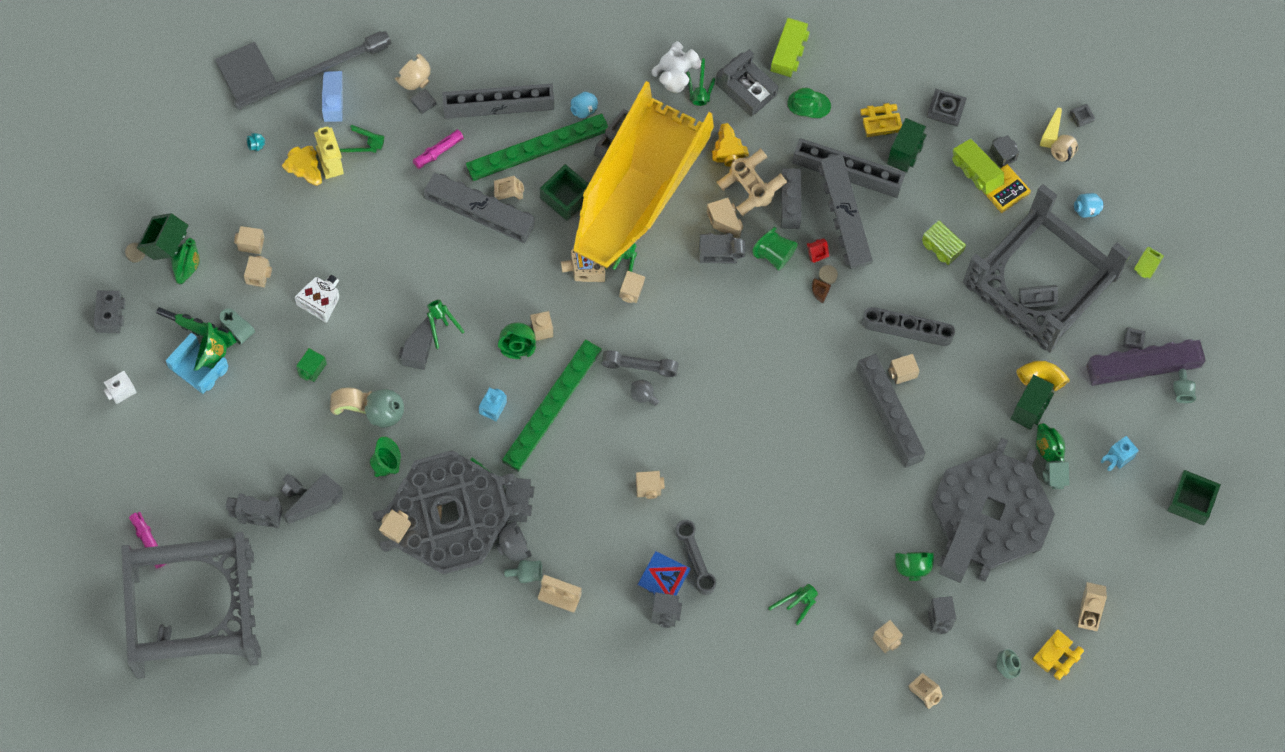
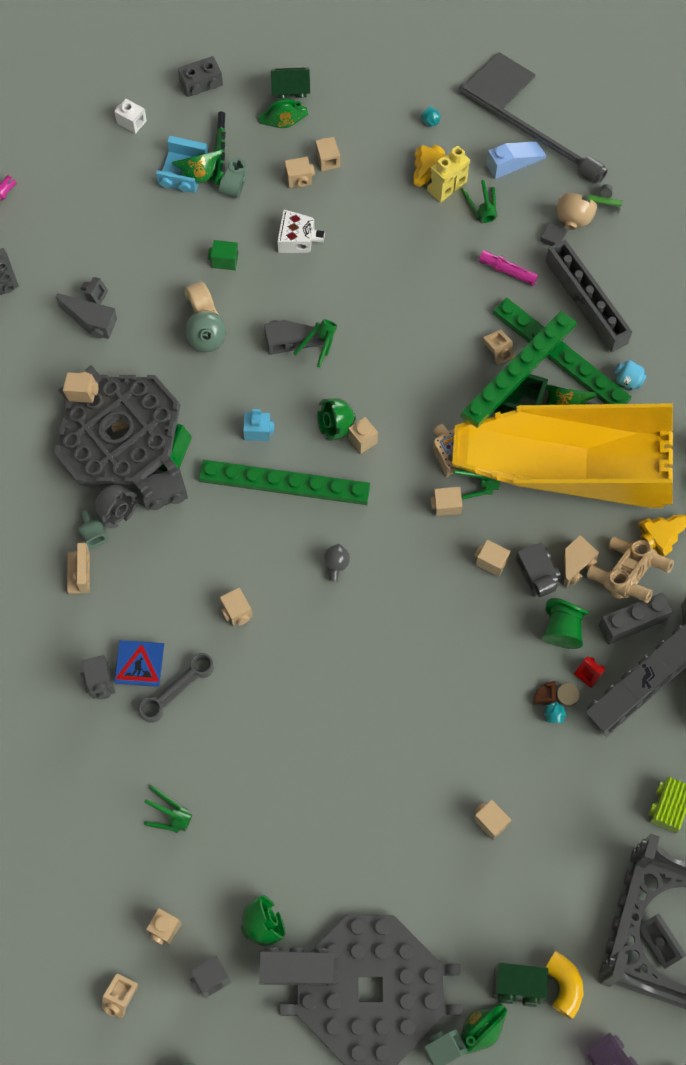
camera: 70 degrees right, 0 degrees up
(134, 254) = (266, 72): dark tan tile -> none
(255, 511) = (52, 268): dark grey hips -> none
(386, 457) = (158, 355): green piece -> none
(405, 42) = (606, 193): none -> piece
(479, 207) = (464, 329): dark grey brick -> none
(547, 180) = (518, 369): none -> green plate
(586, 160) = (565, 396): none -> green hat
(664, 367) = (374, 567): dark grey piece -> none
(695, 276) = (492, 557): none -> tan brick
(840, 289) = (554, 713): none -> teal plate
(890, 410) = (435, 824): dark grey brick -> none
(900, 330) = (548, 816): dark grey beam -> none

